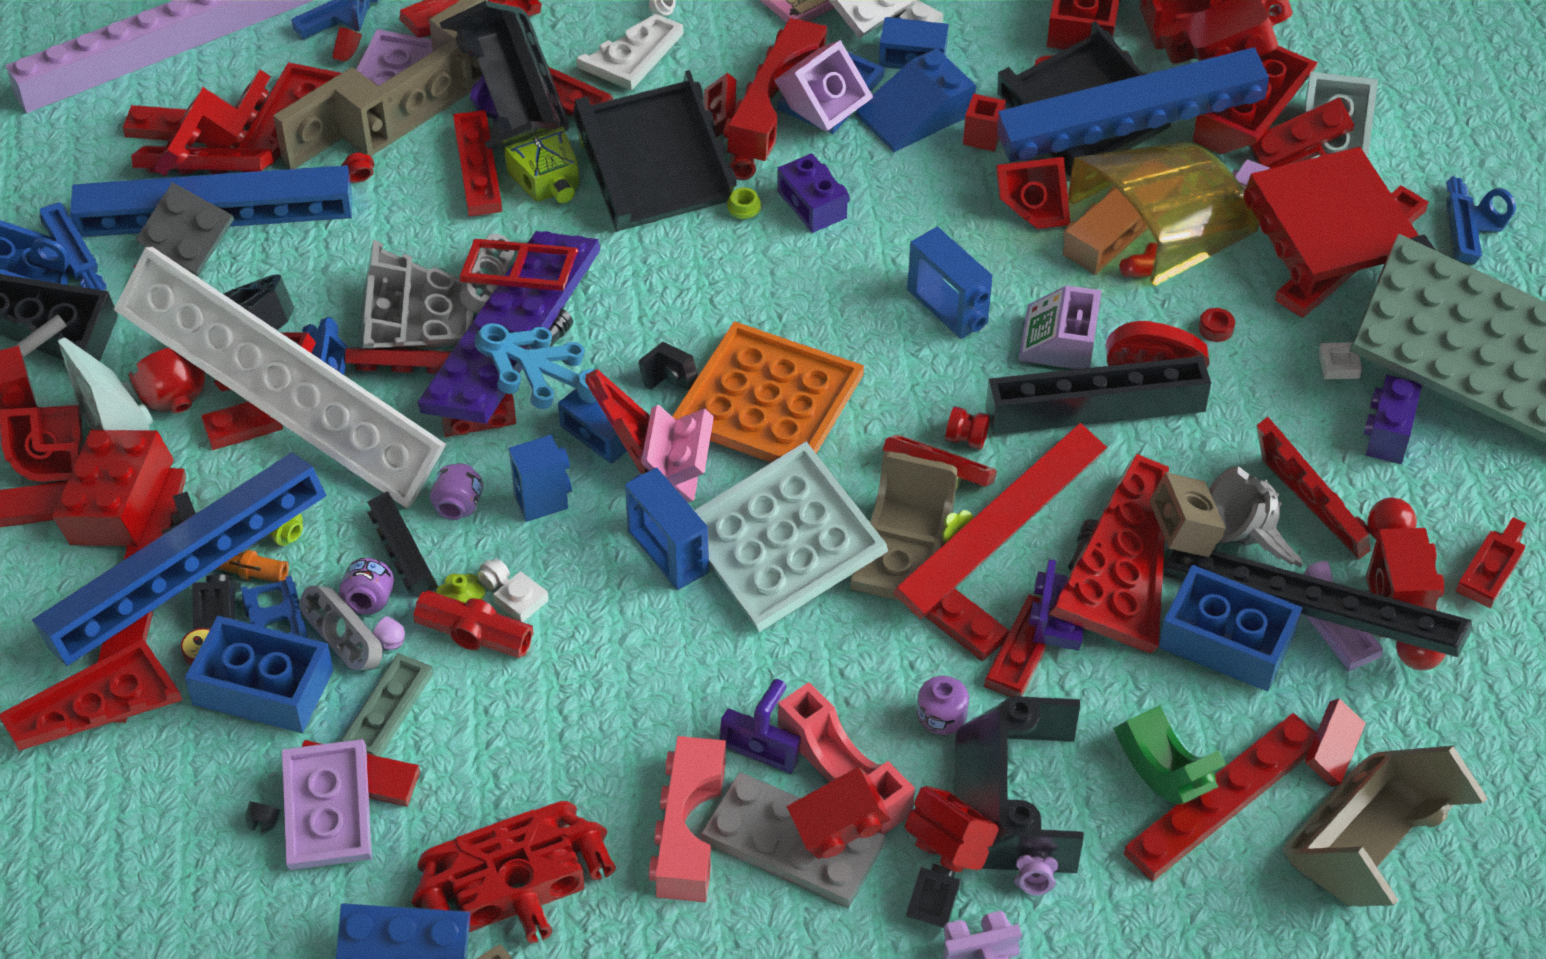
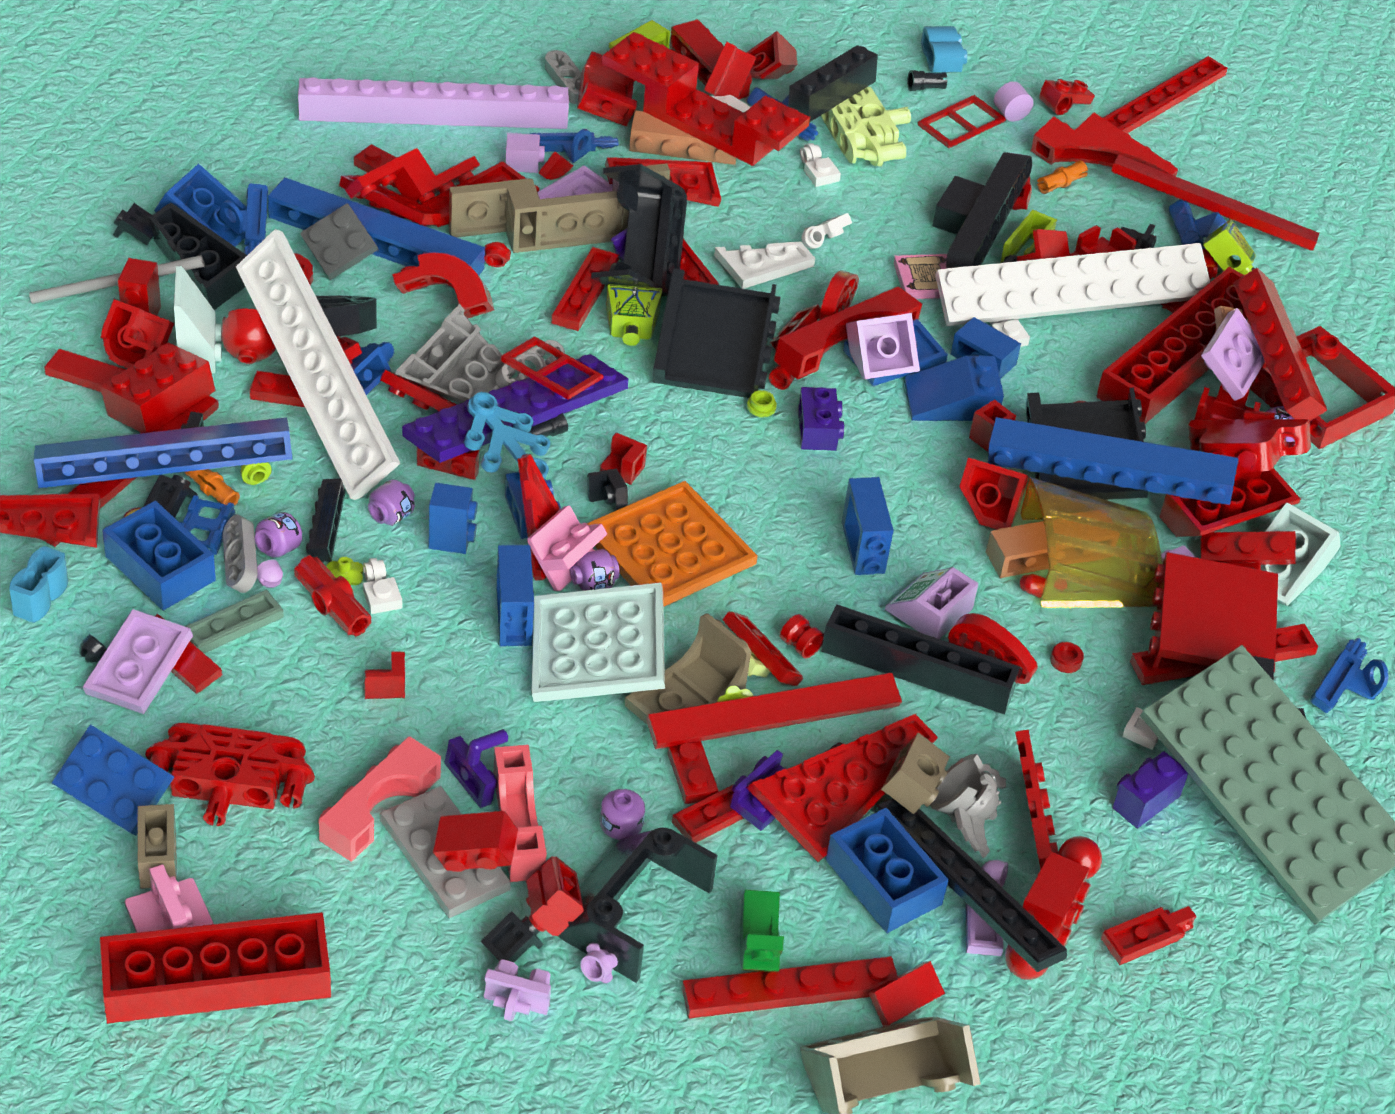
camera: 25 degrees right, 5 degrees down
(152, 774) = (38, 584): none -> dark azure brick
(302, 42) = (524, 152): none -> lavender brick
(336, 208) = (449, 271): none -> red arch
(599, 687) = (387, 682): none -> red panel
(653, 324) = (626, 456): none -> red panel
(724, 462) = (595, 570): none -> medium lavender head
(741, 55) = (839, 293): none -> red piece

